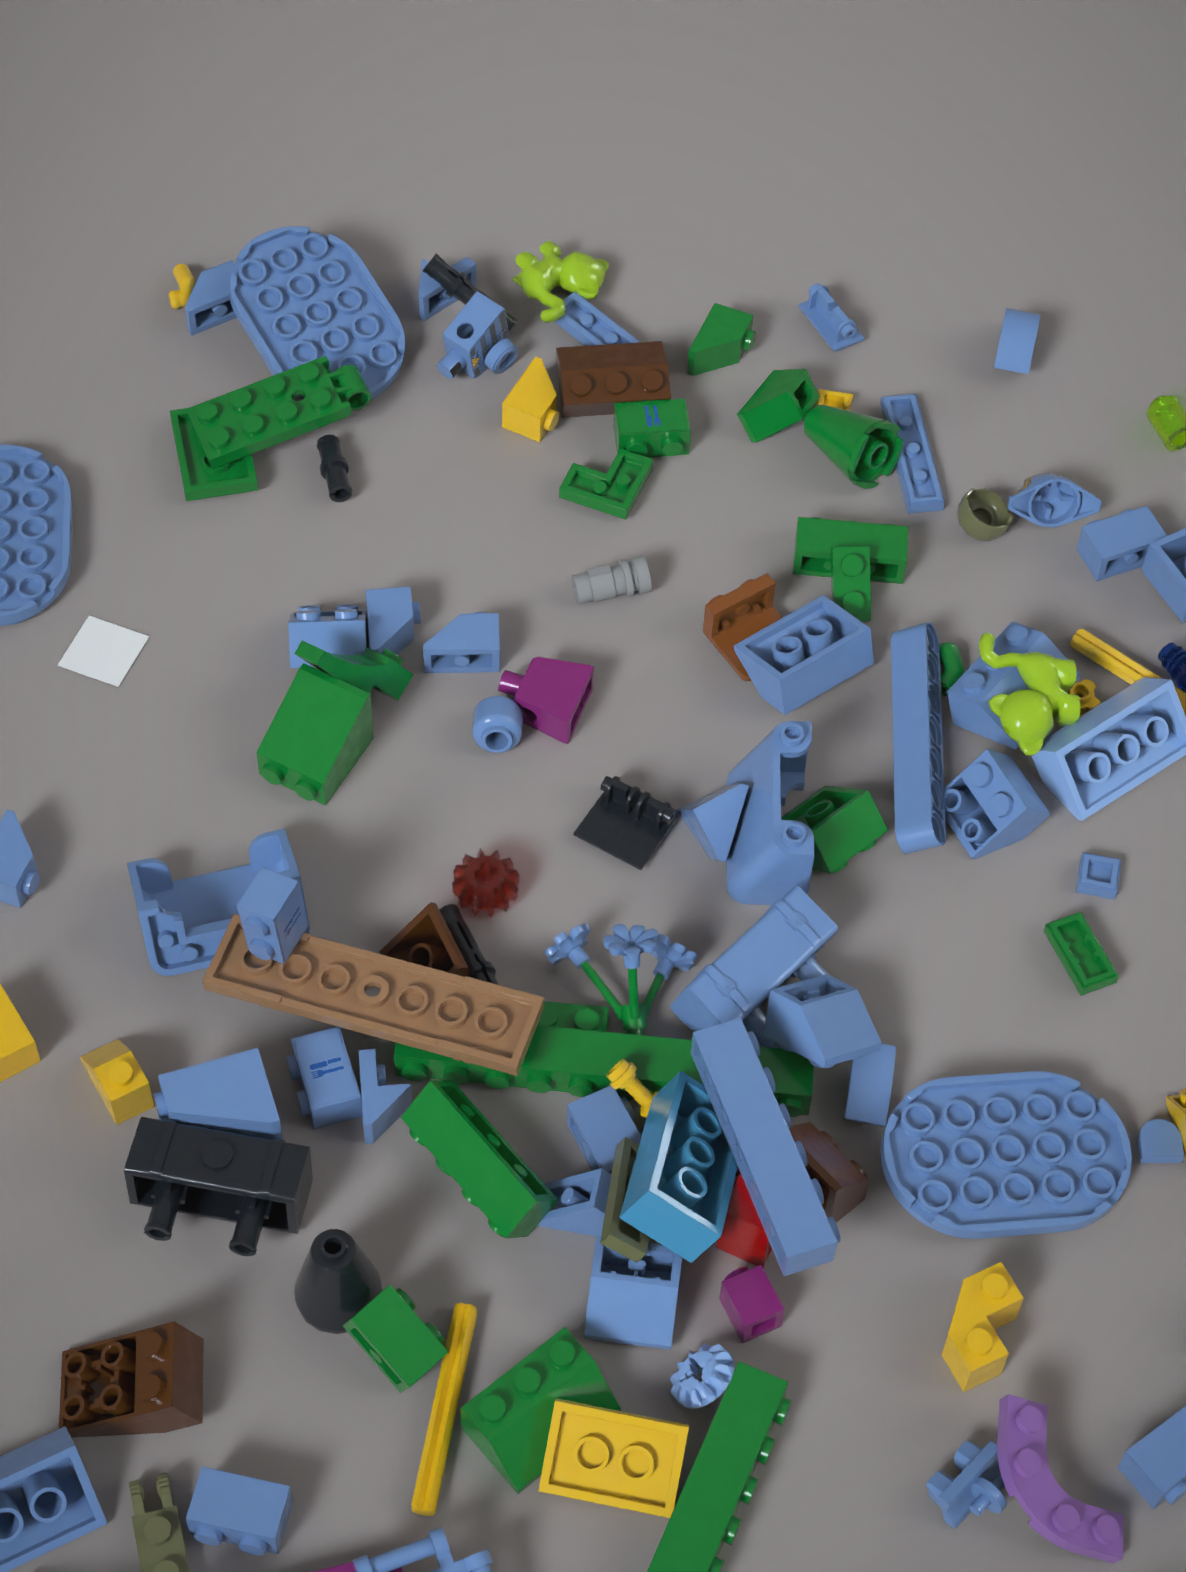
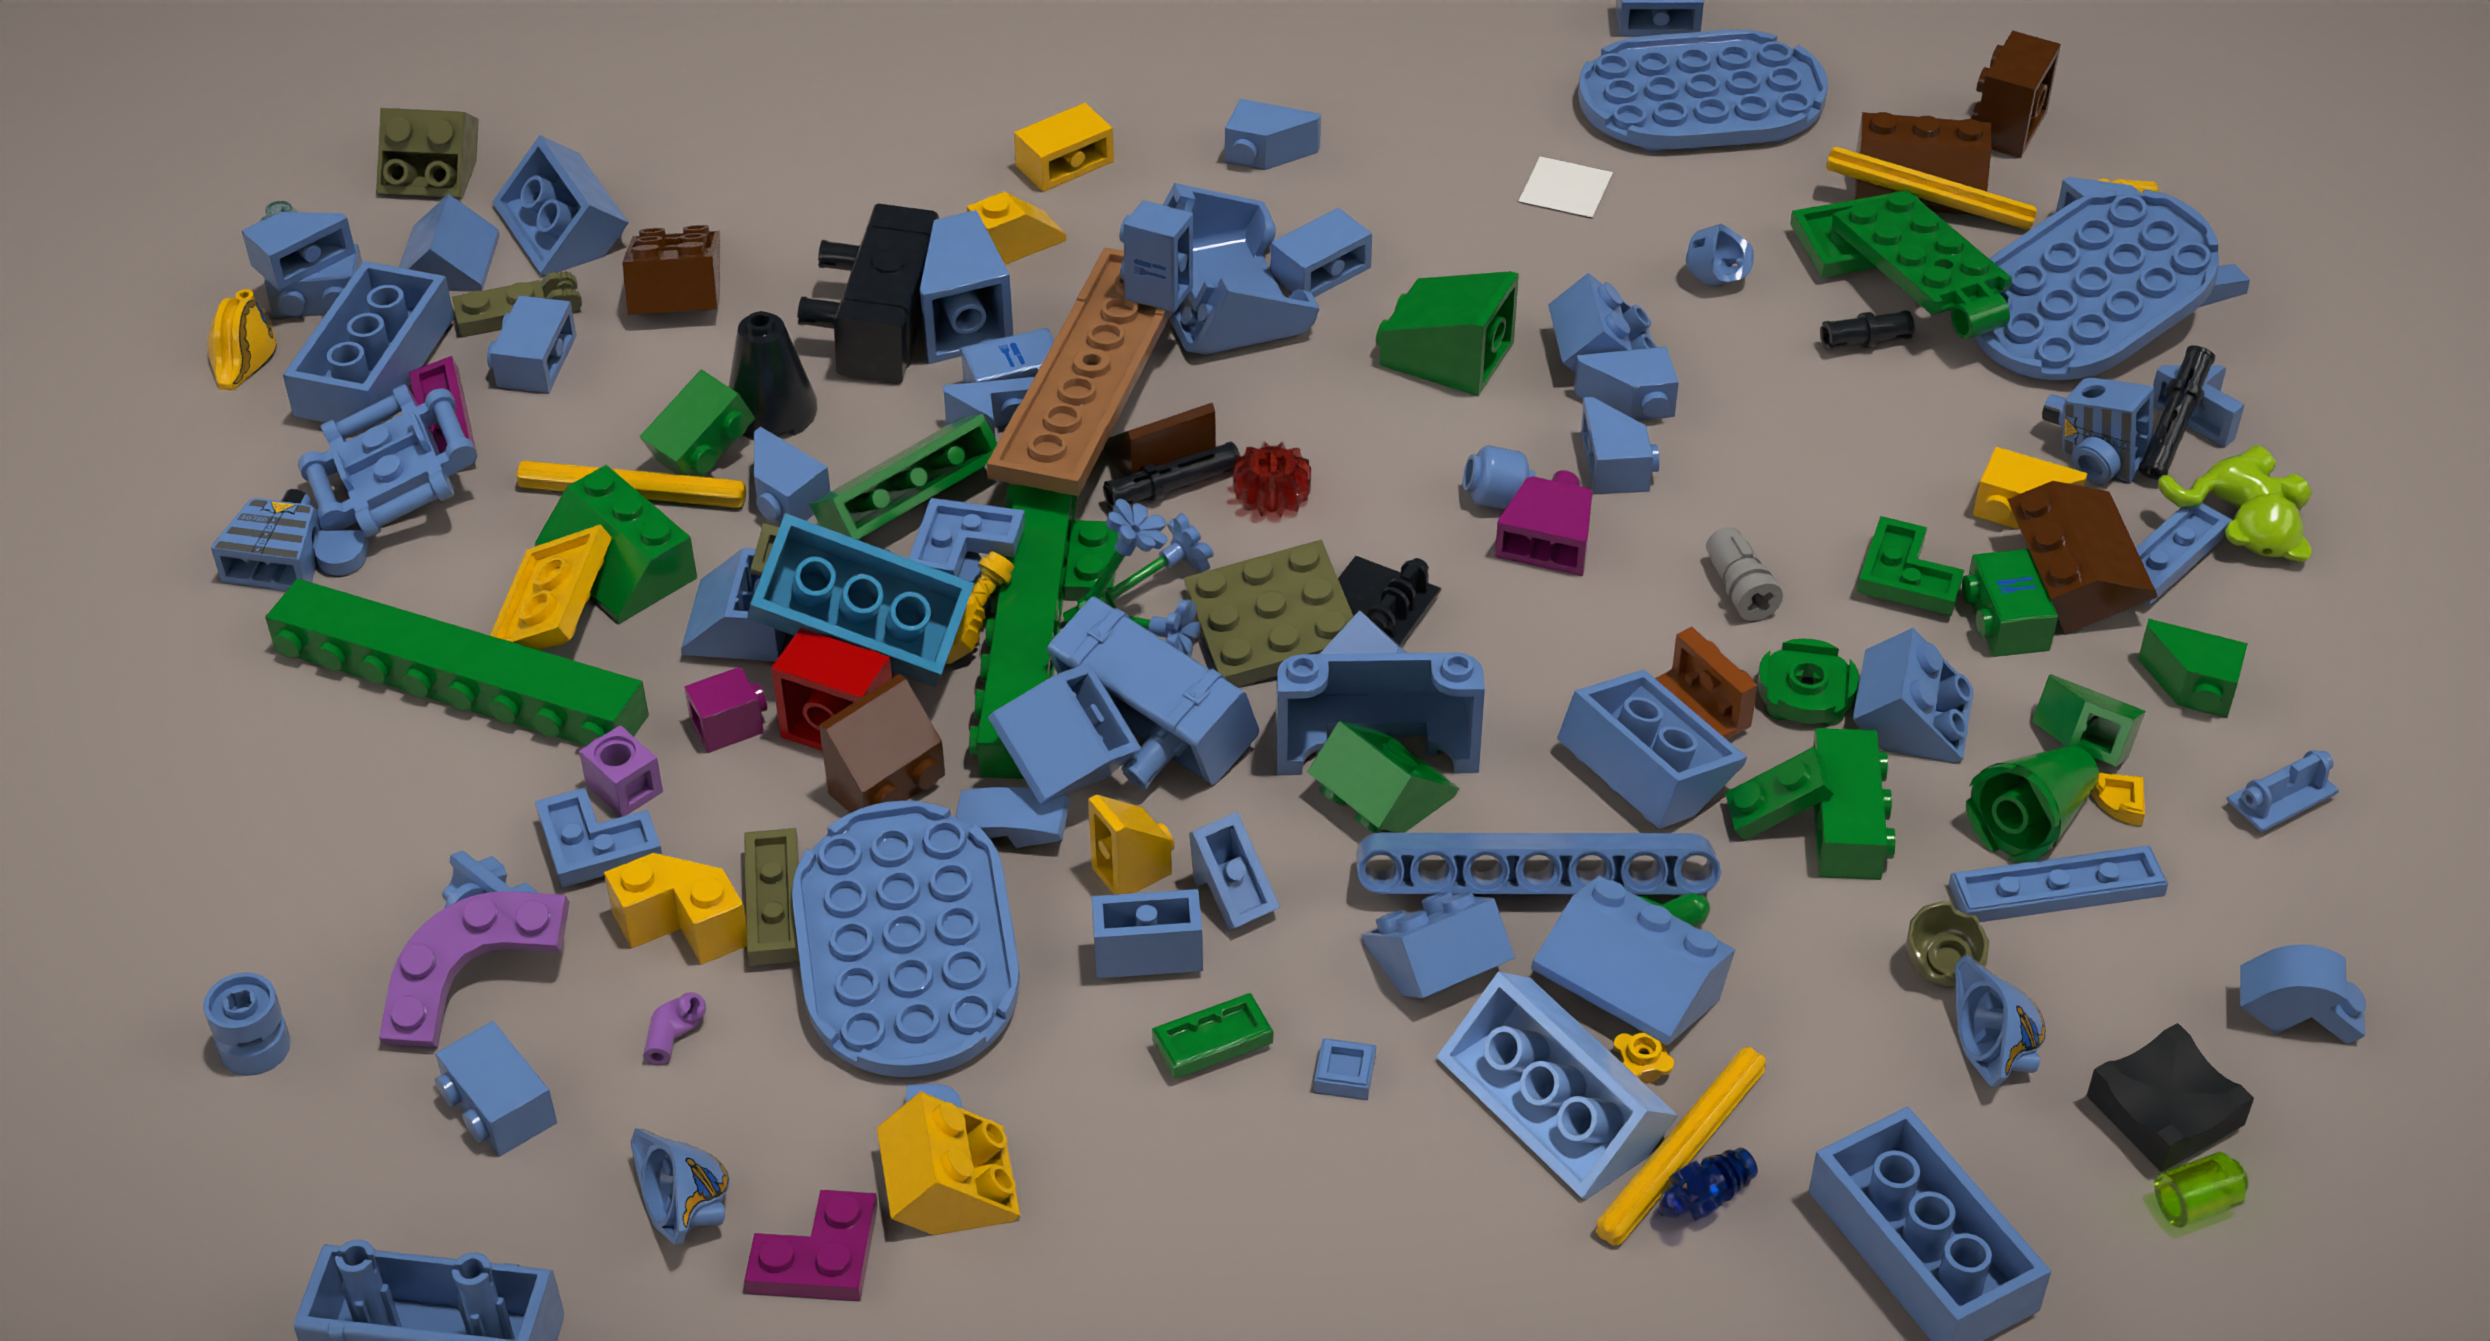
camera: 90 degrees right, 10 degrees down
(69, 320) = (2016, 91): none -> reddish brown brick
(134, 401) = (1929, 145): none -> reddish brown slope
(170, 399) = (1931, 188): none -> yellow axle
(191, 830) = (1321, 253): none -> medium blue brick
(228, 542) = (1715, 251): none -> medium blue piece
(364, 671) = (1529, 330): green slope -> none
(460, 1267) = (786, 478): none -> medium blue slope
(576, 1105) = (959, 527): none -> medium blue plate
(645, 883) = (1268, 610): none -> olive plate
(717, 1372) = (640, 665): light blue gear -> none
(718, 575) = (1824, 701): none -> green plate
(750, 499) = (1913, 699): none -> medium blue slope
(764, 1147) = (866, 642): medium blue brick -> none
(828, 1367) = (621, 771): none -> medium lavender brick
(906, 1412) = (588, 848): none -> medium blue plate
(912, 995) = (1127, 845): none -> yellow slope
(933, 926) = (1232, 869): none -> medium blue slope
(953, 1258) = (769, 878): none -> olive plate
(1002, 984) = (1147, 933): none -> medium blue brick
(1030, 712) = (1566, 950): lime animal -> none
(1086, 1332) = (670, 1023): none -> medium lavender arm
(1103, 424) = (2169, 1098): none -> black brick
(1118, 542) = (1941, 1100): medium blue brick -> none

